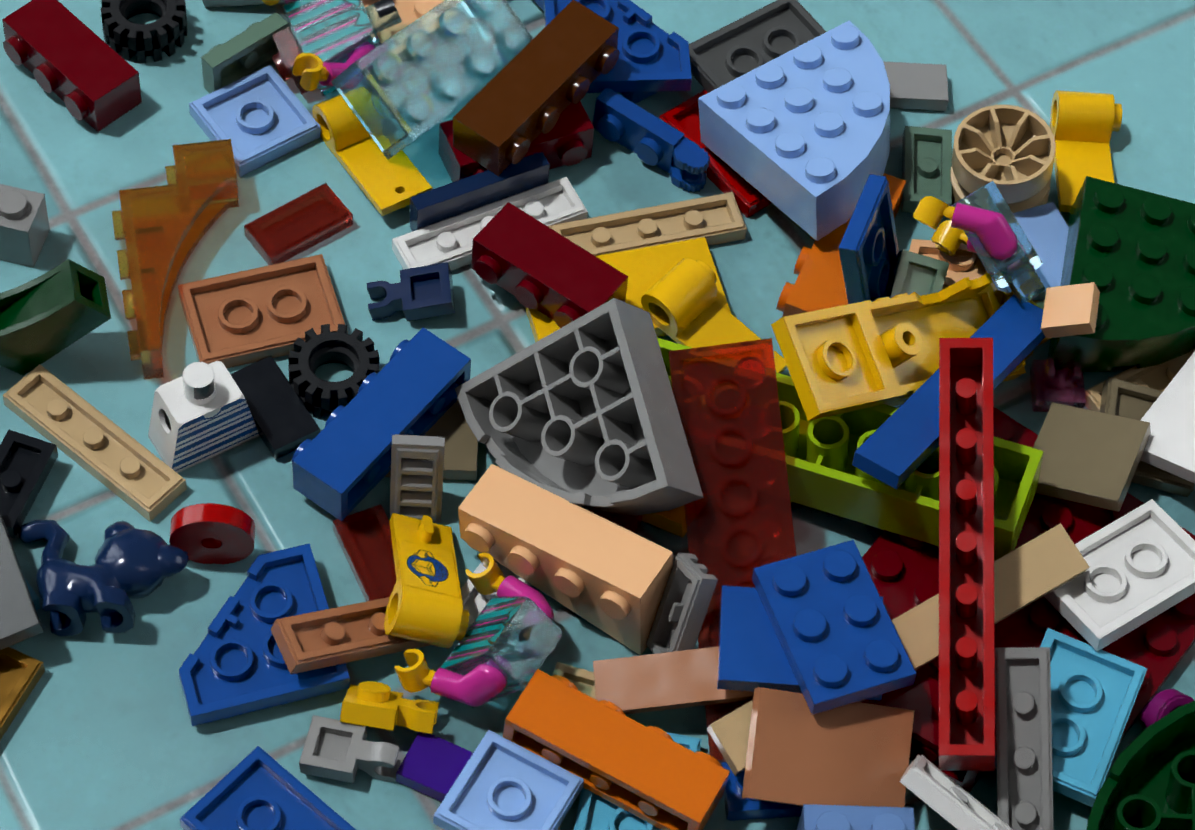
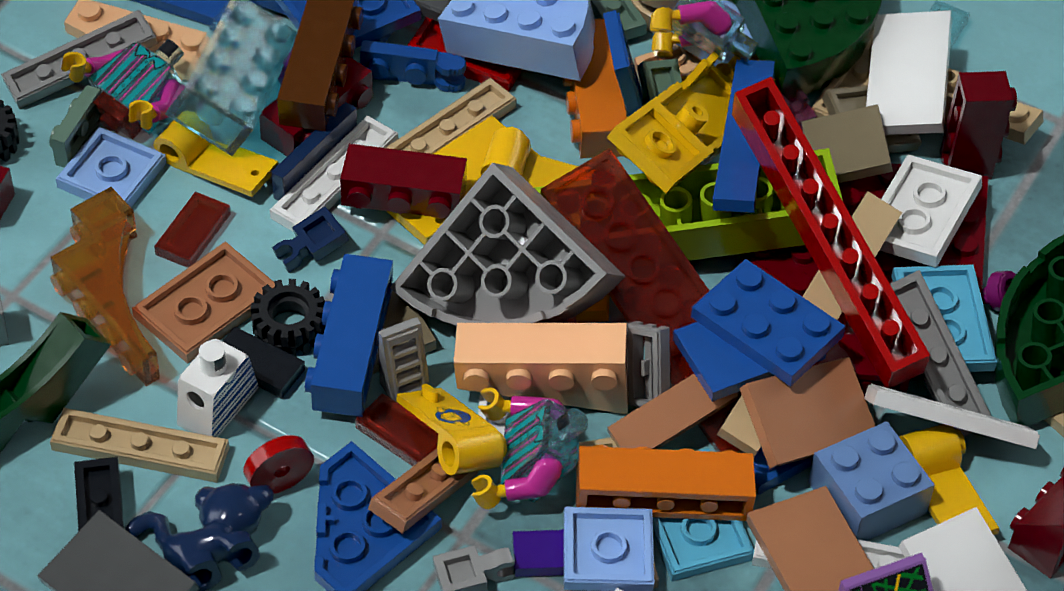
camera: 25 degrees left, 5 degrees down
(379, 707) = (474, 528): yellow plate -> none
(1070, 310) = (786, 50): light nougat tile -> none

